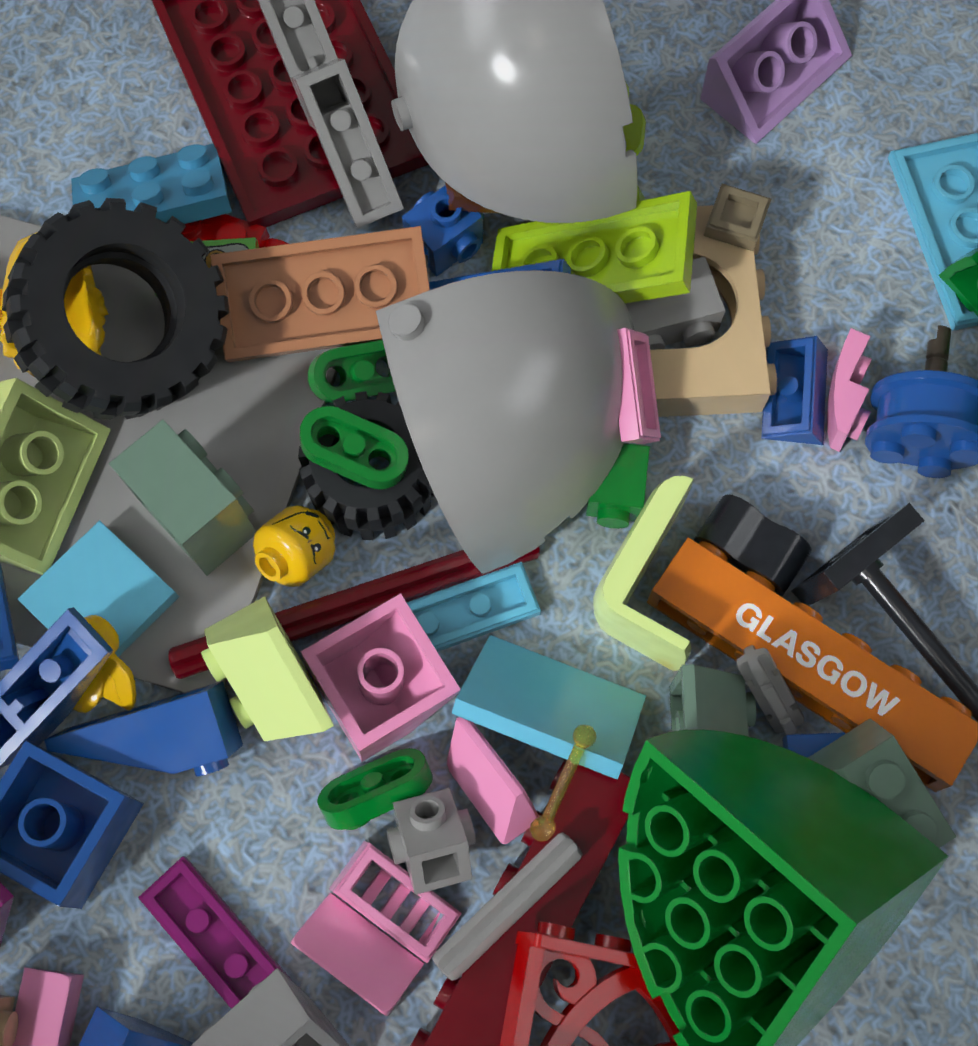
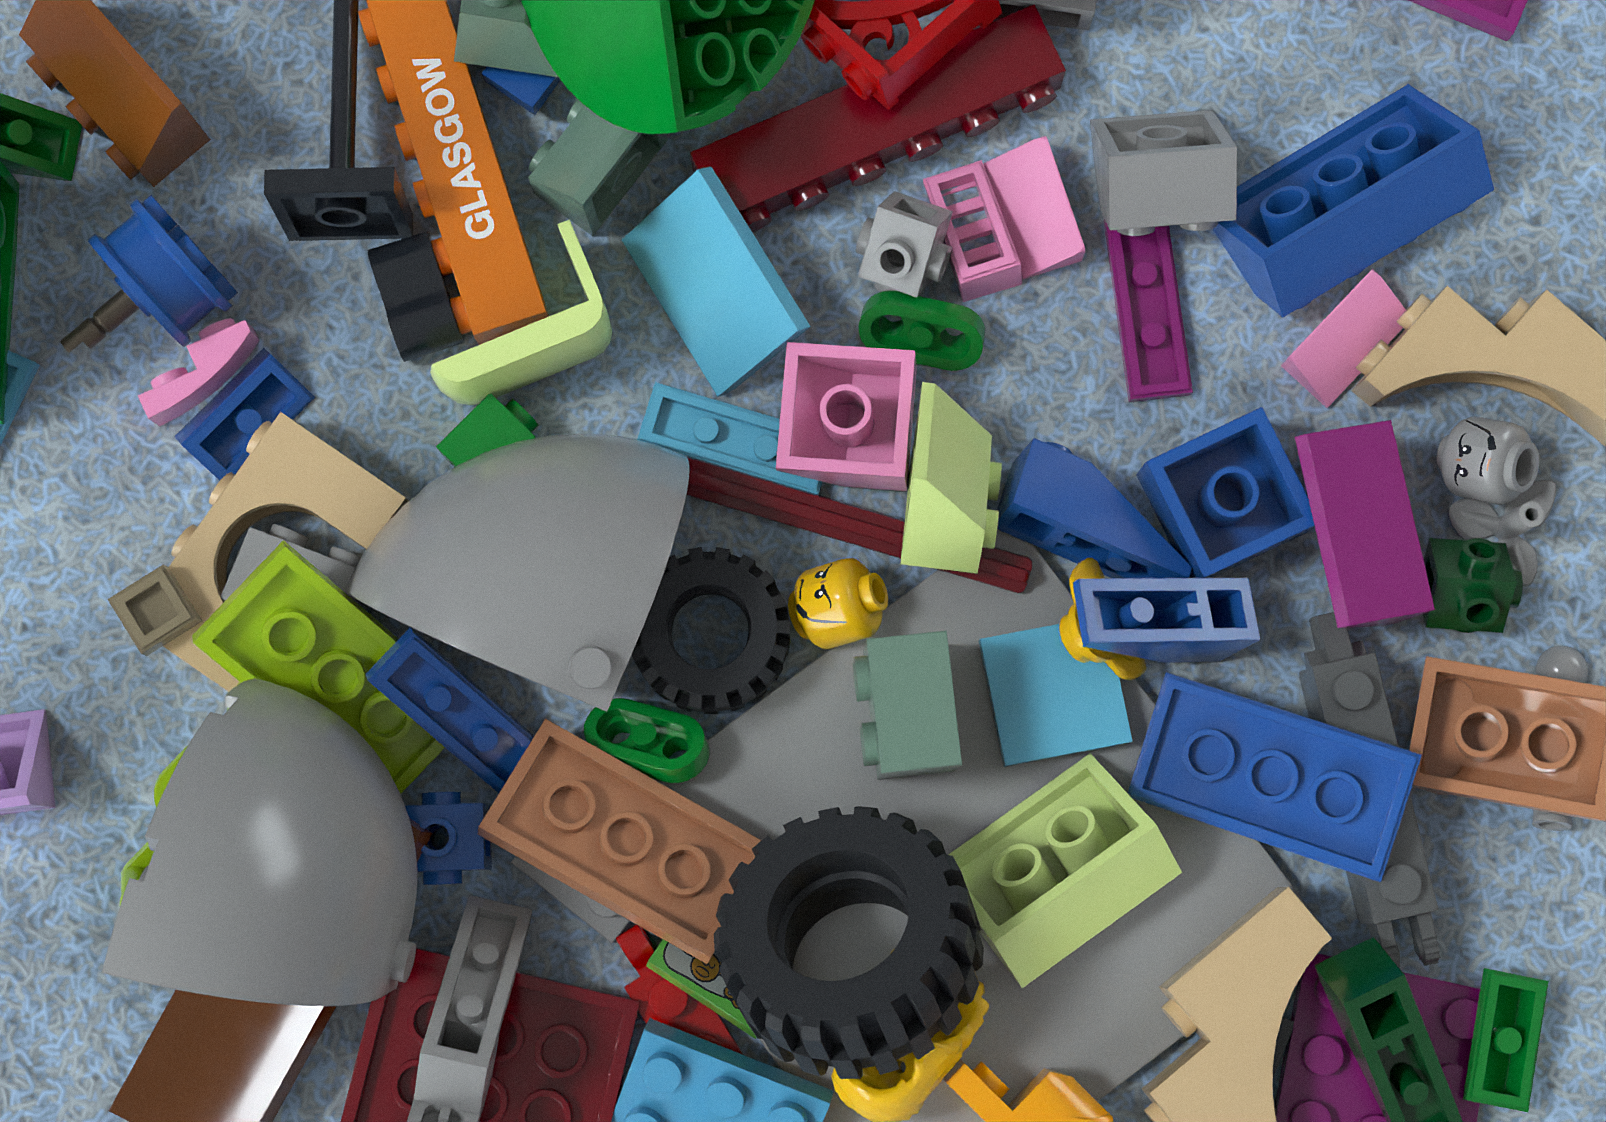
camera: 145 degrees left, 10 degrees up
(356, 446) = (720, 630): green plate -> none
(489, 783) = (822, 255): bright pink slope -> none
(507, 906) = (882, 135): light grey axle -> none
(543, 826) = (802, 178): clear yellow hinge -> none
(638, 404) = (422, 473): bright pink tile -> none
(770, 690) = (515, 152): light grey axle -> none

